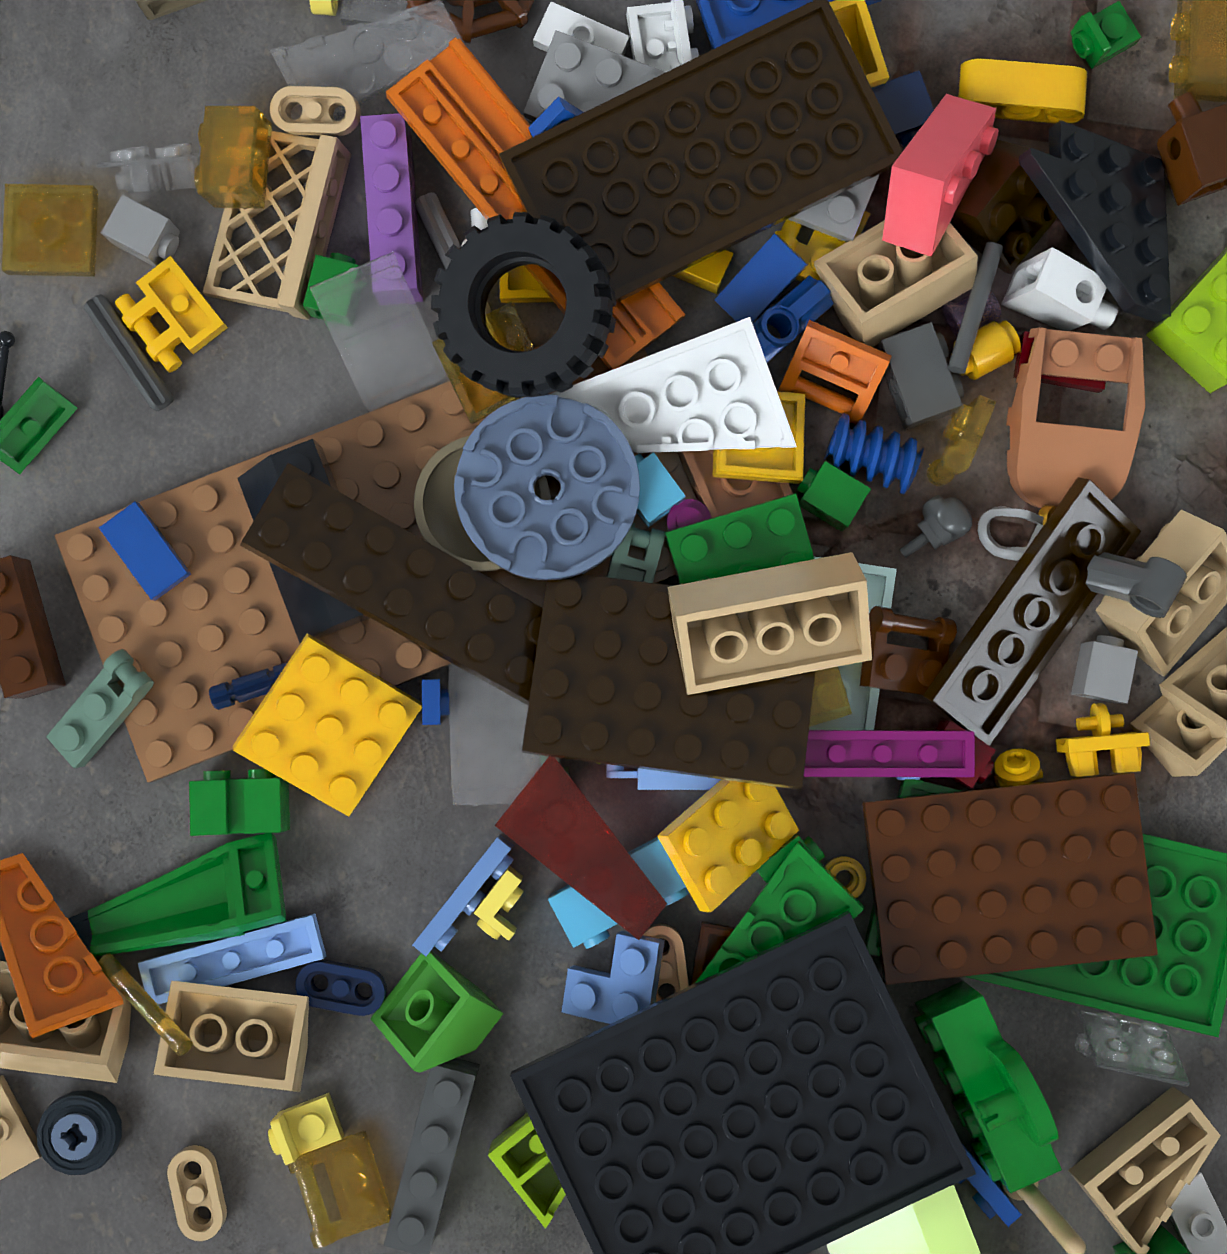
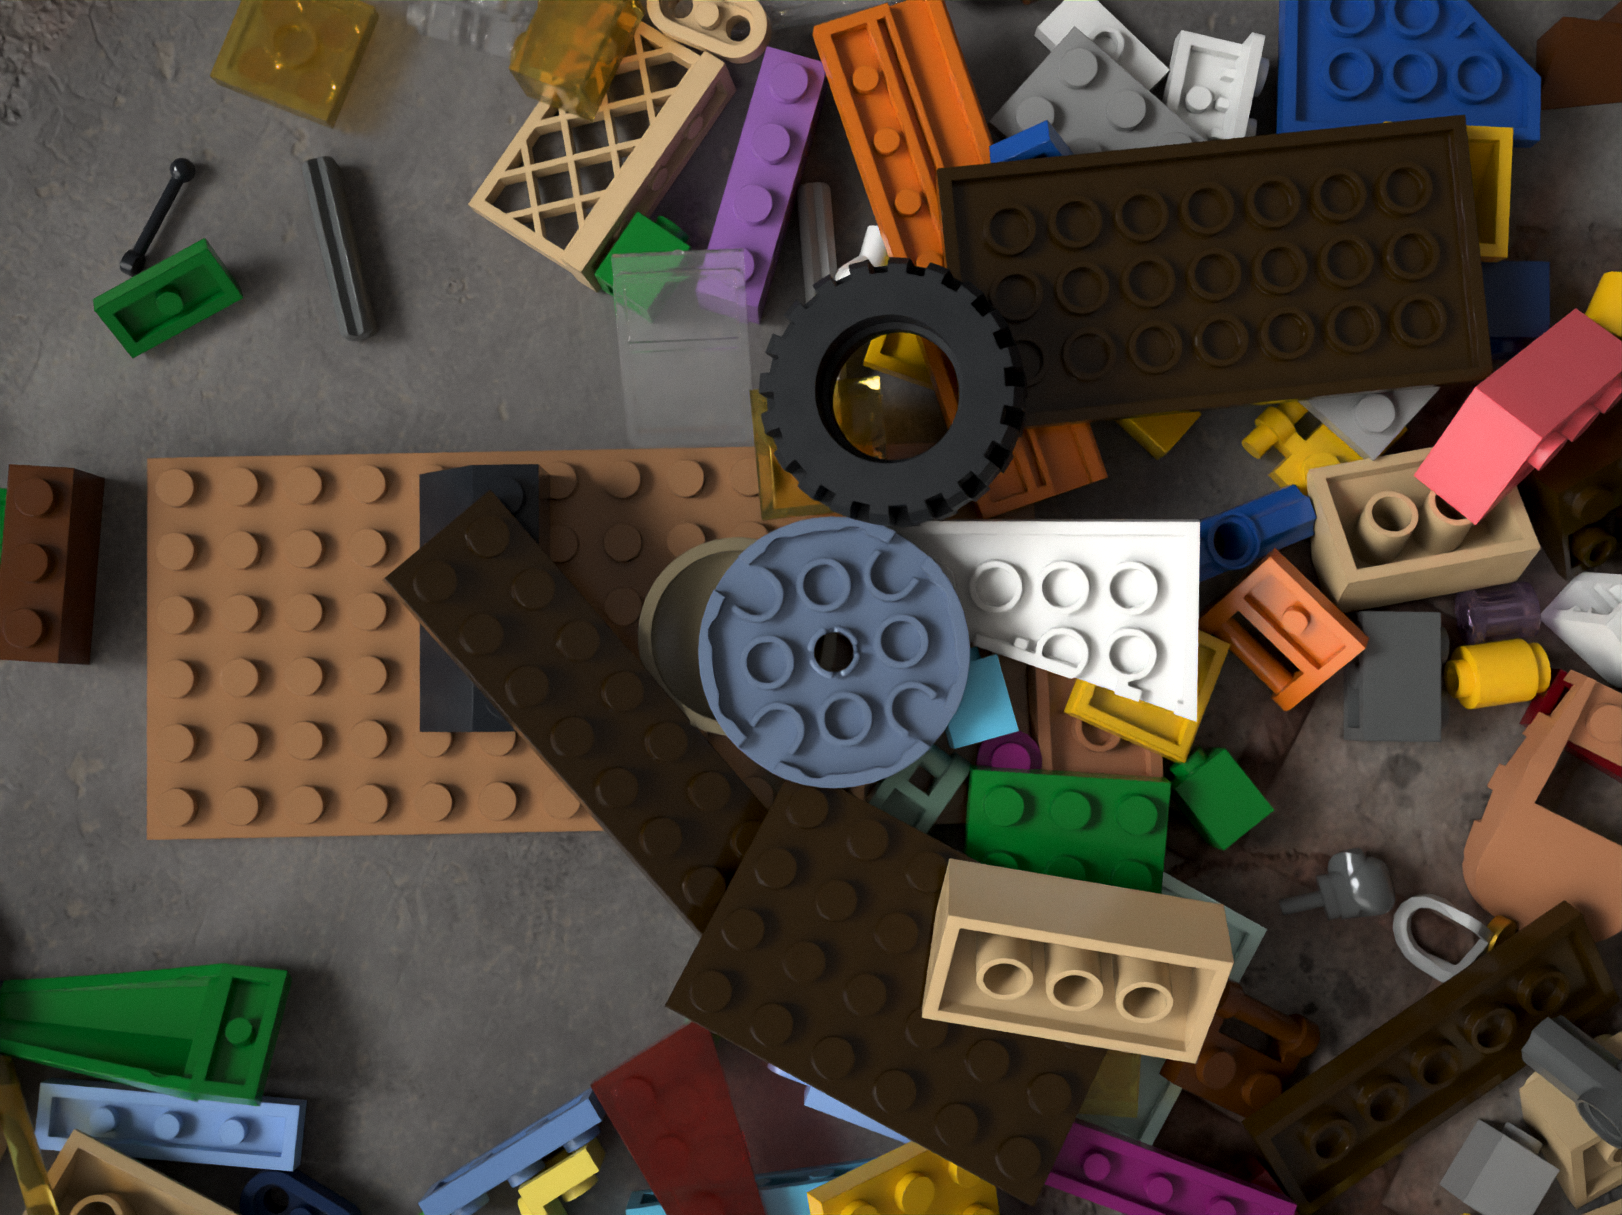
camera: 15 degrees right, 0 degrees up
(100, 709) = (118, 719): sand green plate -> none
(141, 232) = (416, 93): light grey brick -> none
(145, 551) = (258, 527): blue tile -> none
(182, 307) = (431, 210): yellow plate -> none
(238, 804) = (258, 916): green brick -> none
(244, 687) = (336, 765): dark blue axle -> none
(327, 725) = (415, 857): yellow plate -> none
(434, 702) = (572, 877): blue plate -> none
(486, 742) = (623, 960): clear piece -> none
(761, 280) = (1226, 468): blue tile -> none
(874, 453) = (1295, 758): blue piece -> none
(964, 435) = (1425, 792): clear yellow plate -> none
(975, 307) = (1508, 615): dark grey bar -> none

